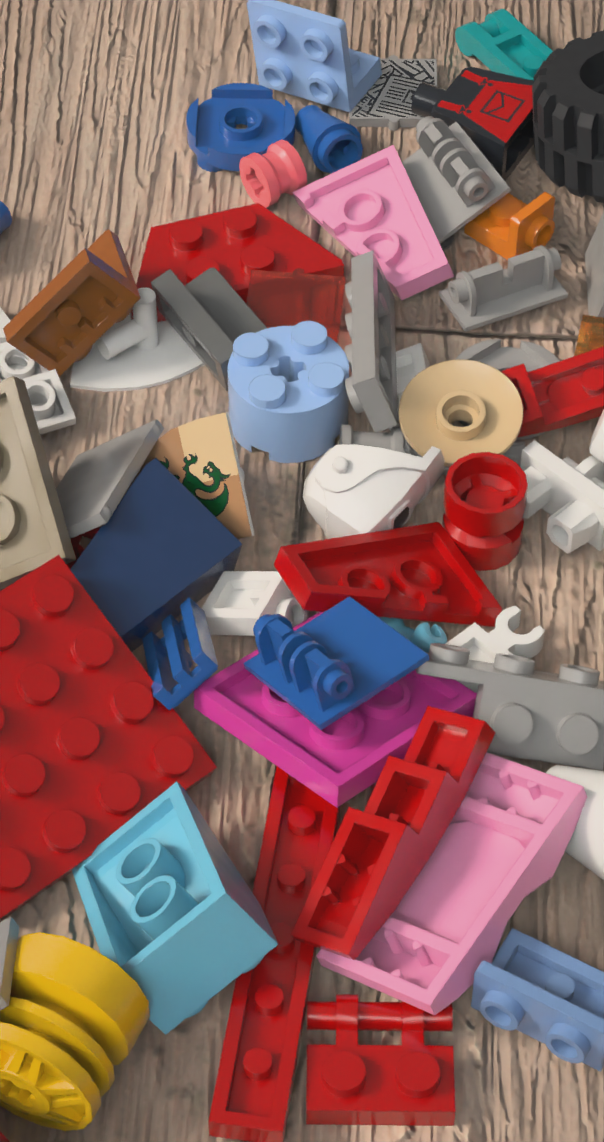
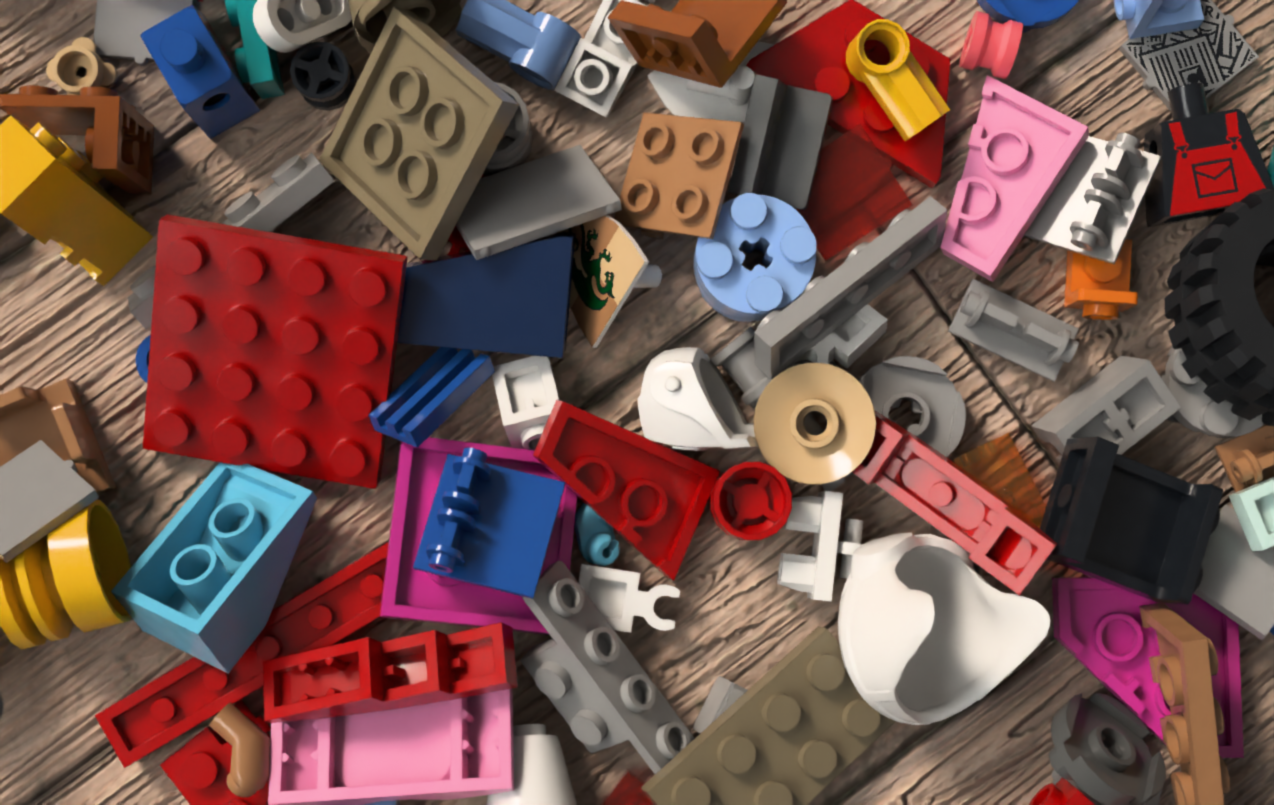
camera: 45 degrees right, 35 degrees up
(174, 376) = (678, 175): none -> medium nougat hinge
(221, 216) = (900, 85): none -> yellow piece
(328, 139) = (1073, 53): blue cone -> none
(359, 995) = (249, 751): none -> medium nougat arm

